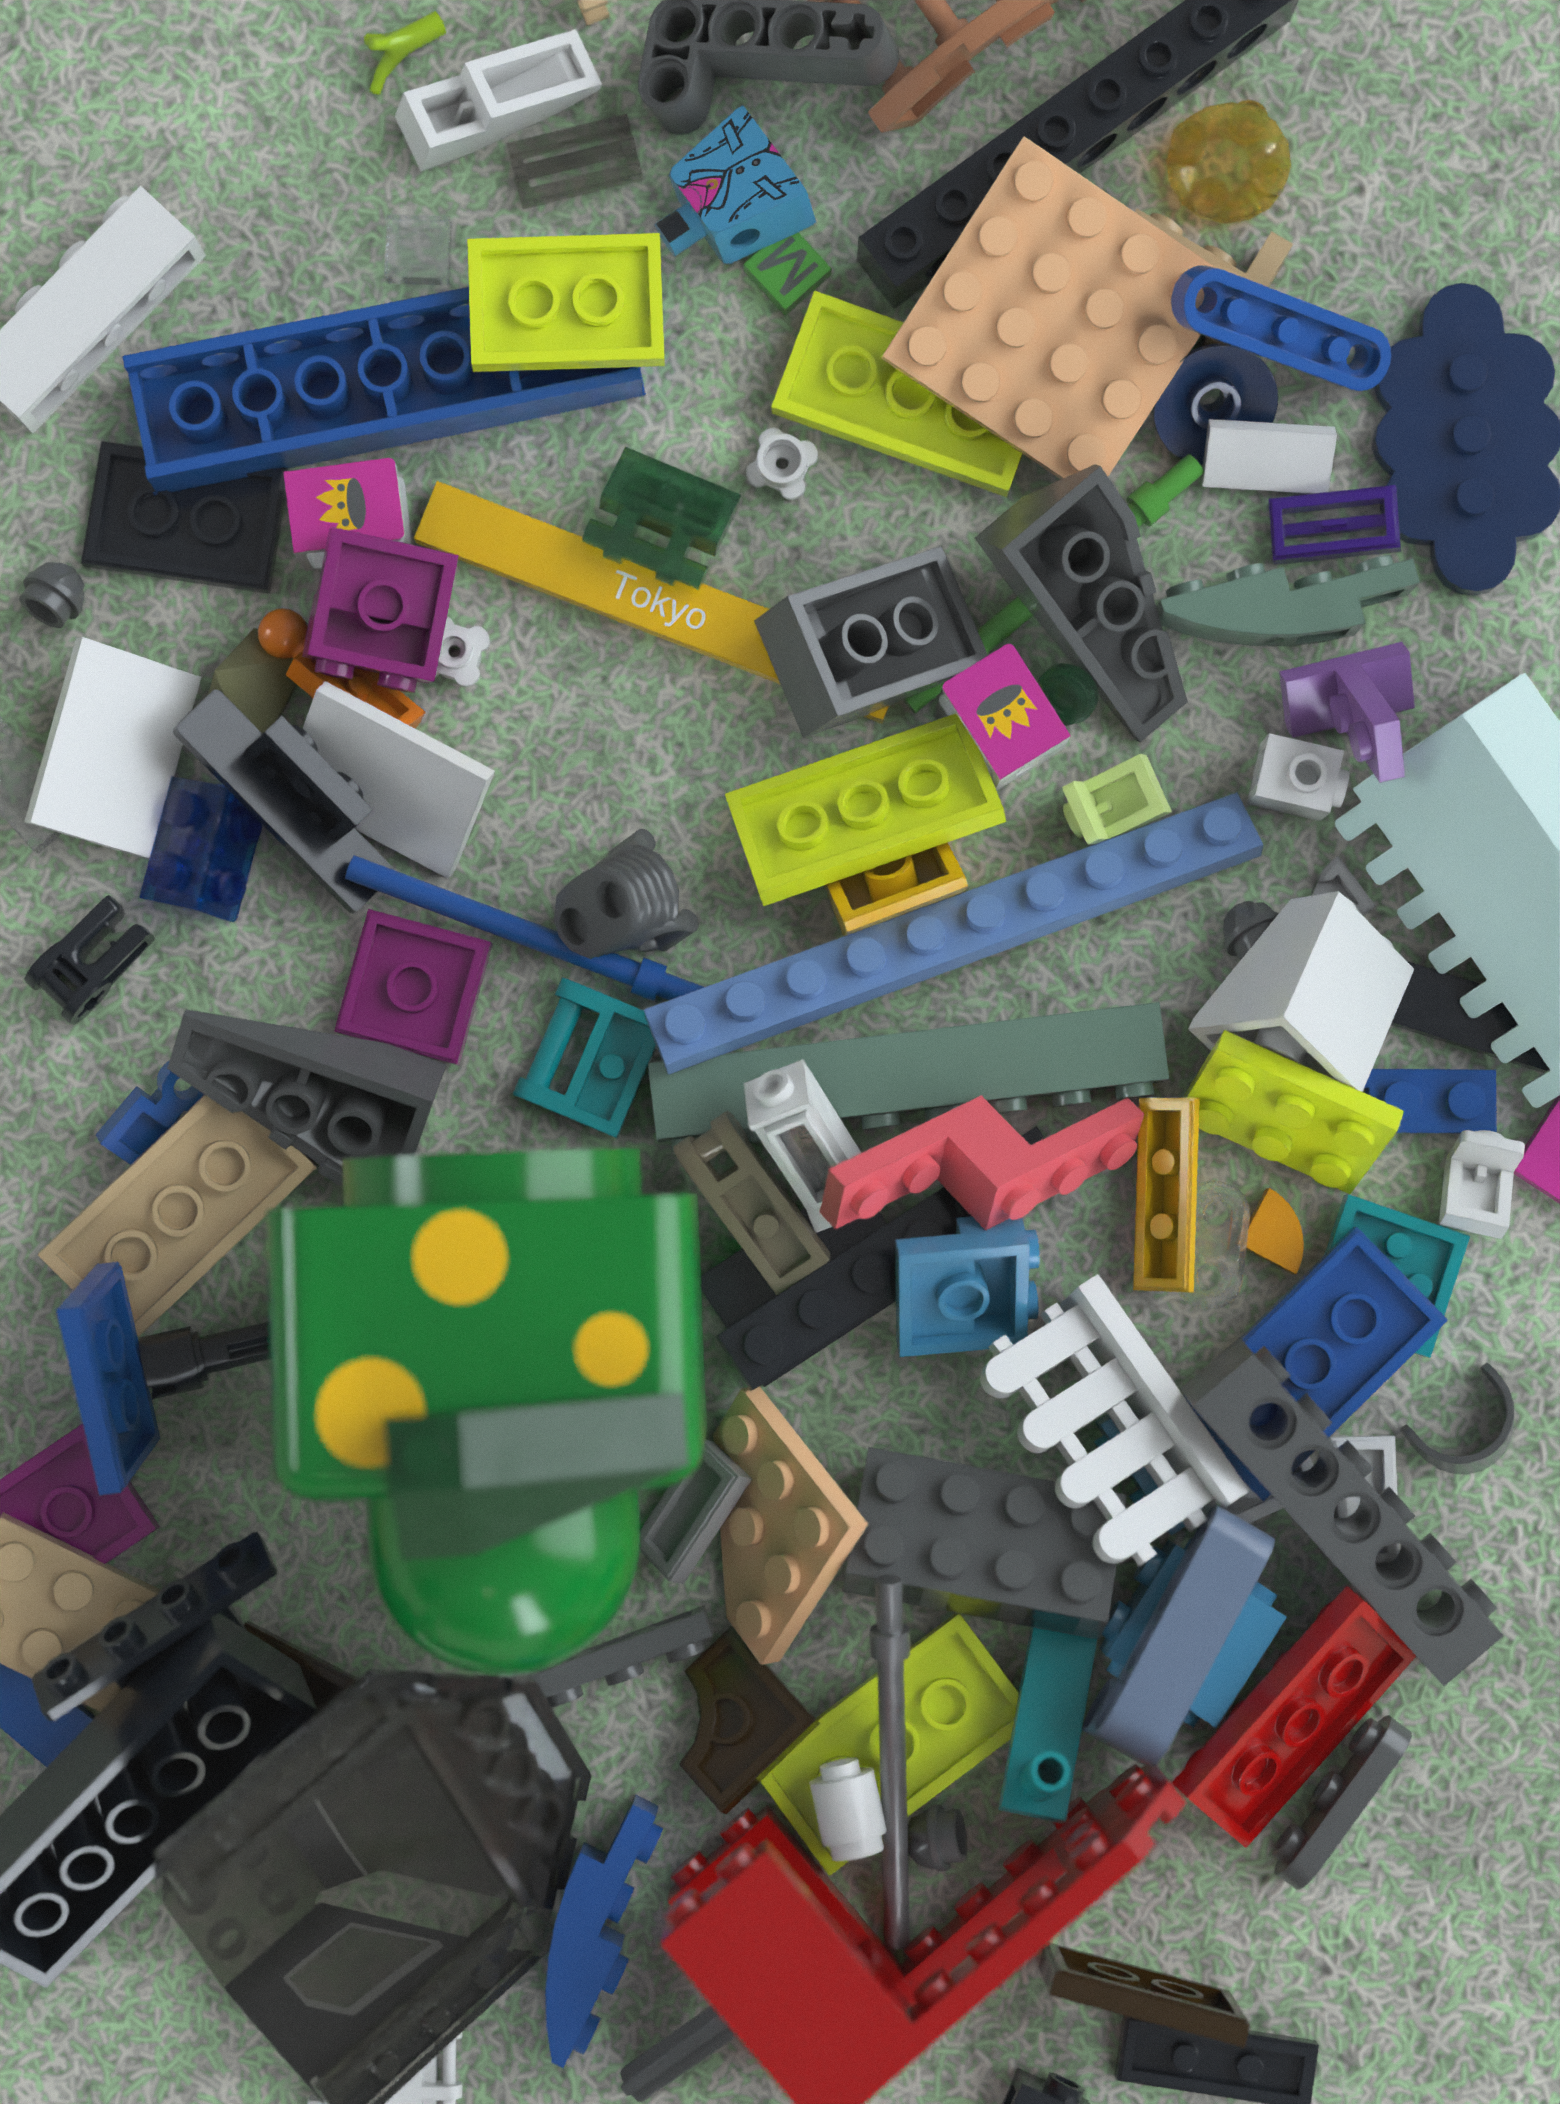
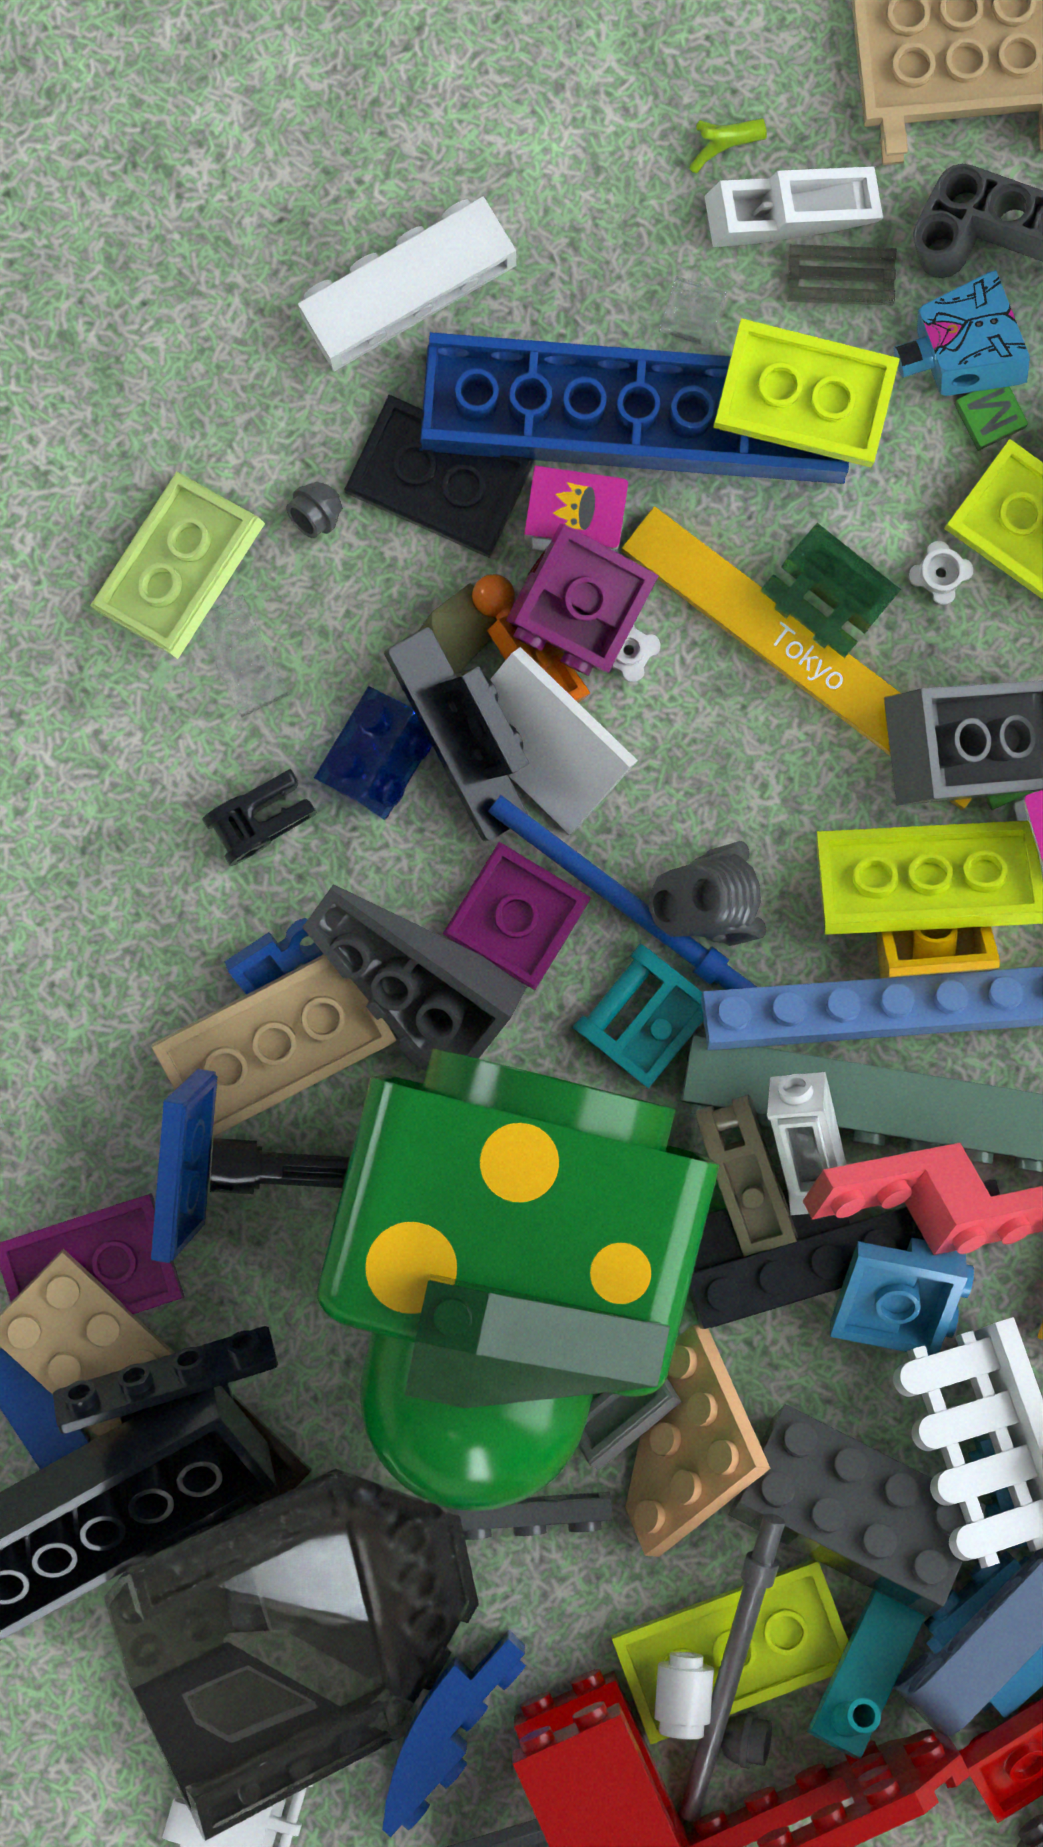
camera: 20 degrees right, 0 degrees up
(111, 748) = (328, 650): white tile -> none
(744, 1721) = (617, 1596): dark brown tile -> none

